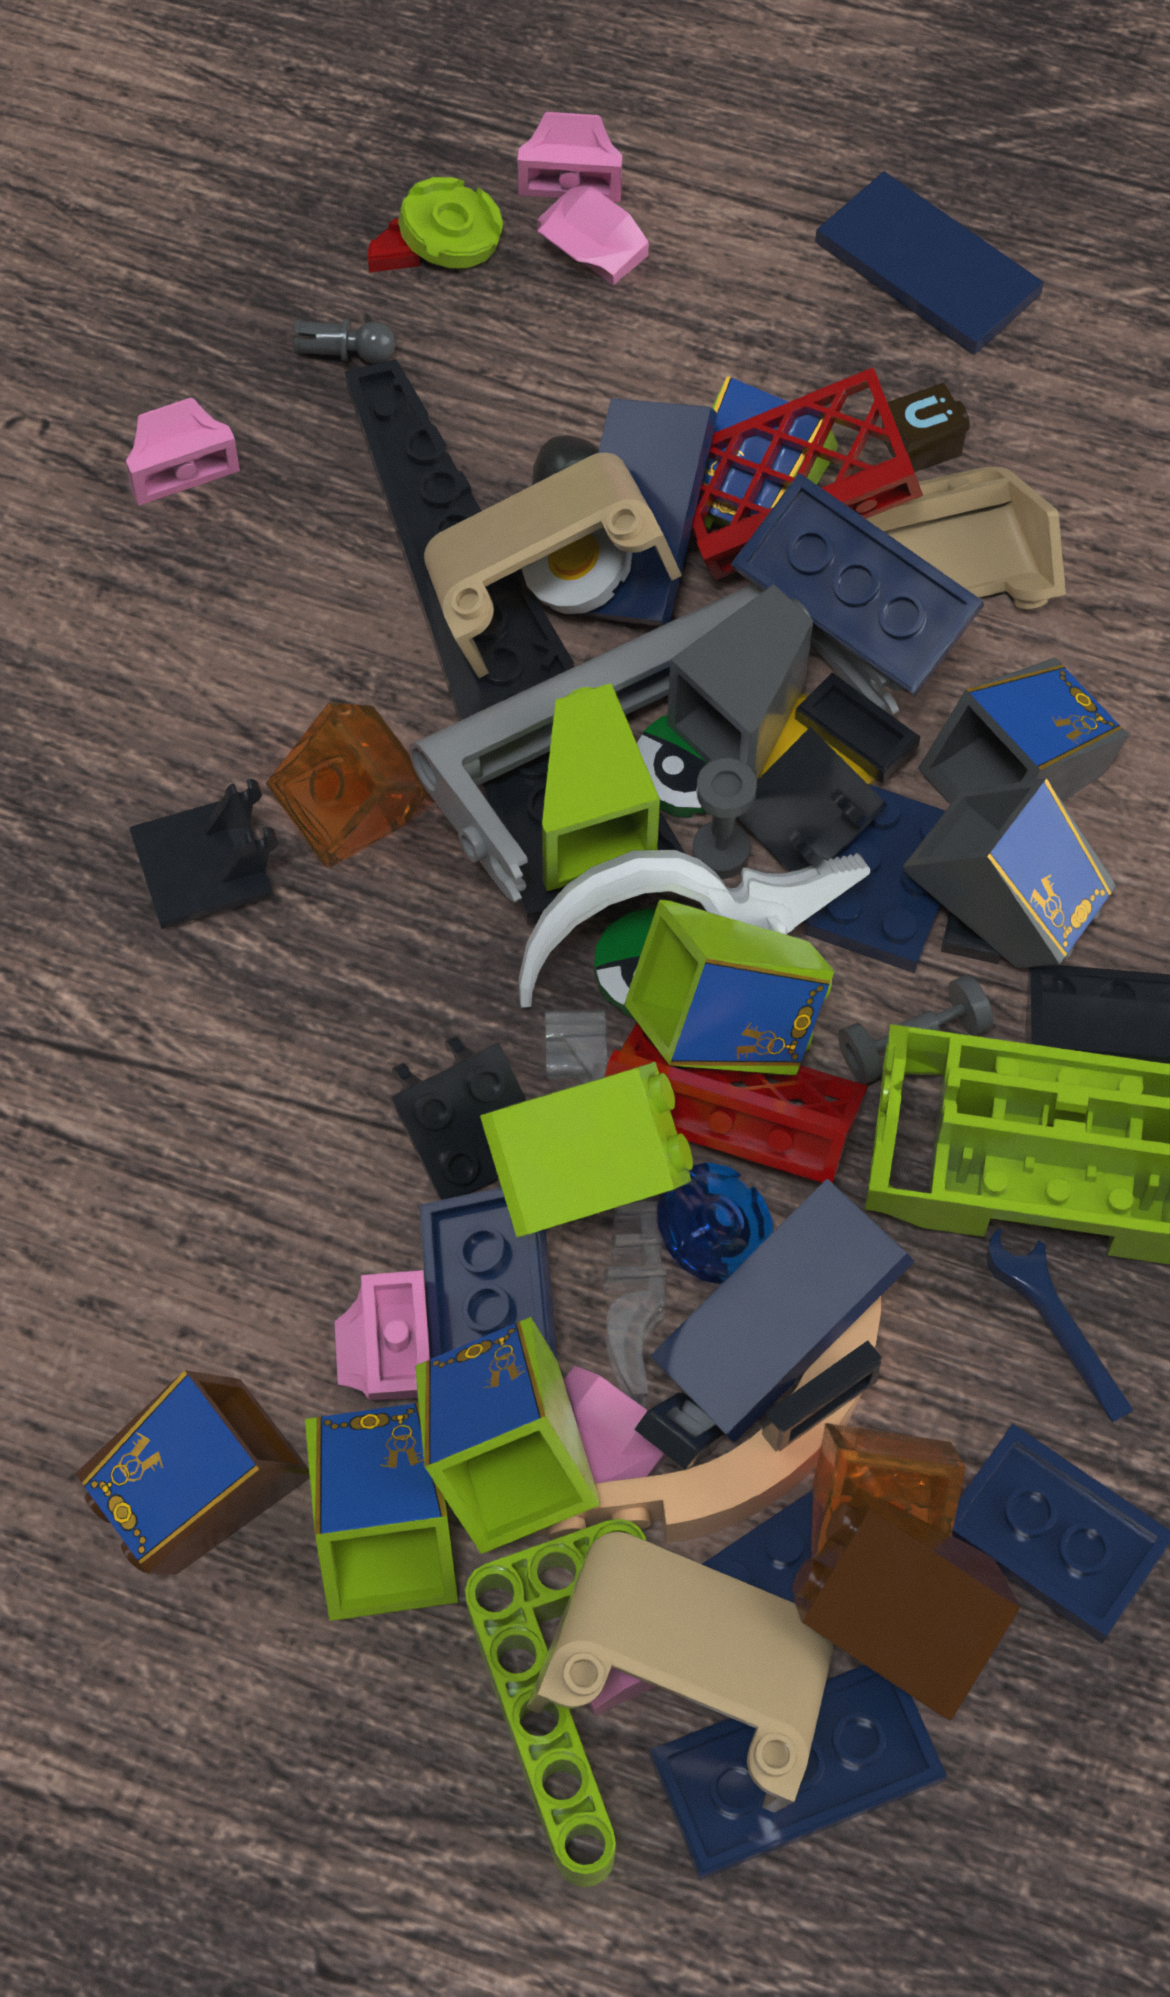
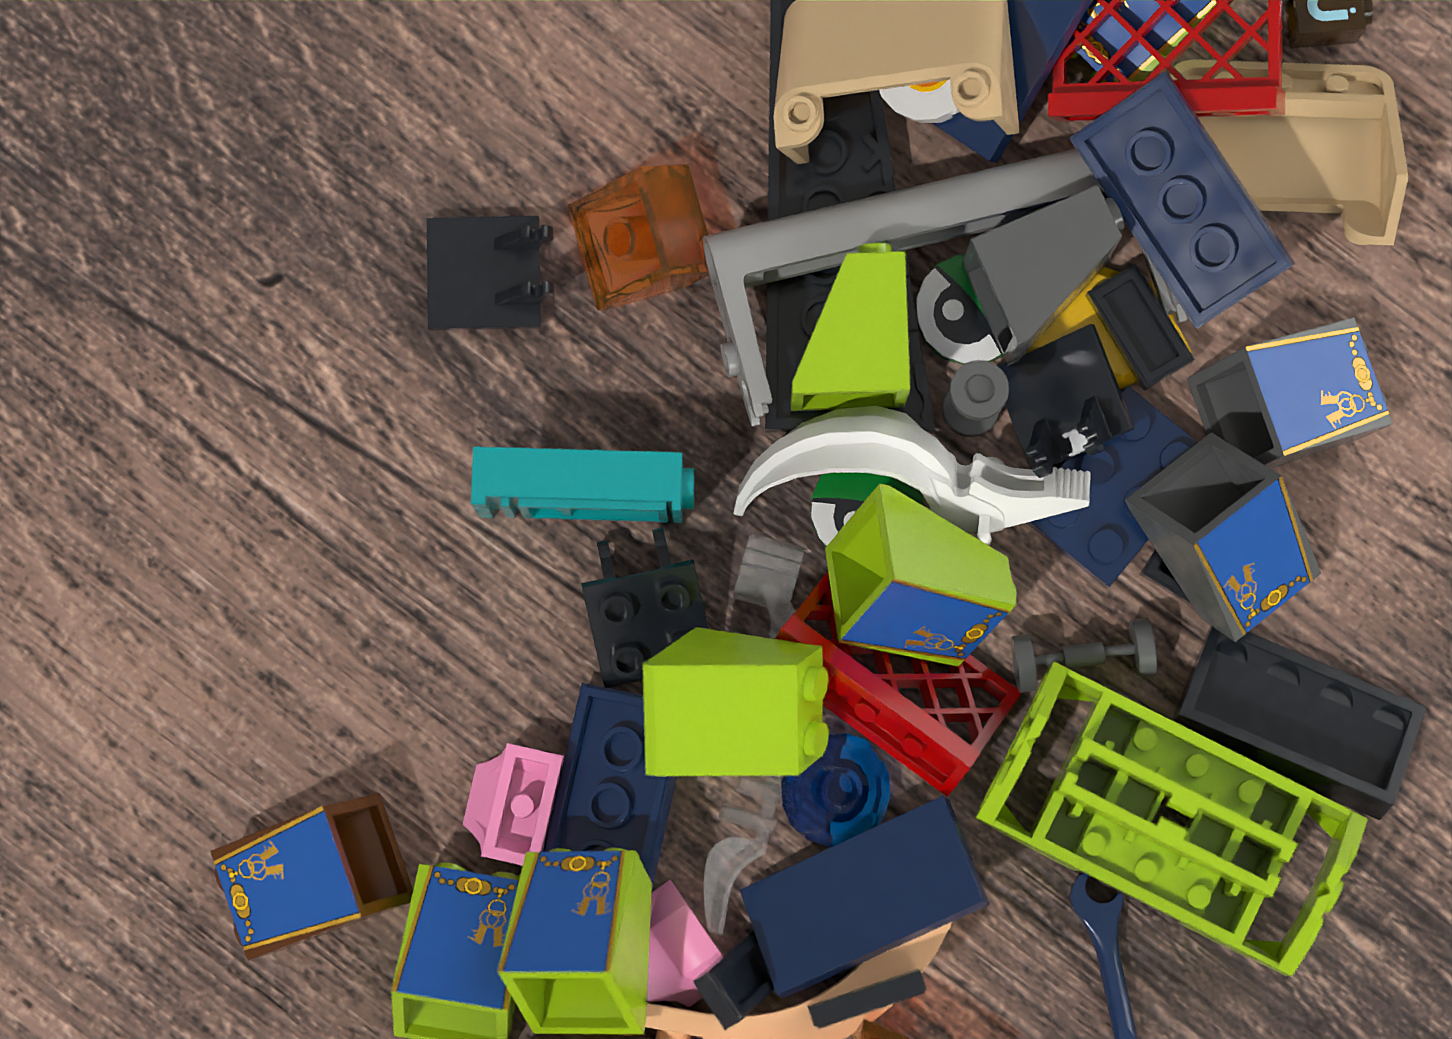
camera: 20 degrees right, 20 degrees up
(361, 1005) = (581, 484): none -> teal door

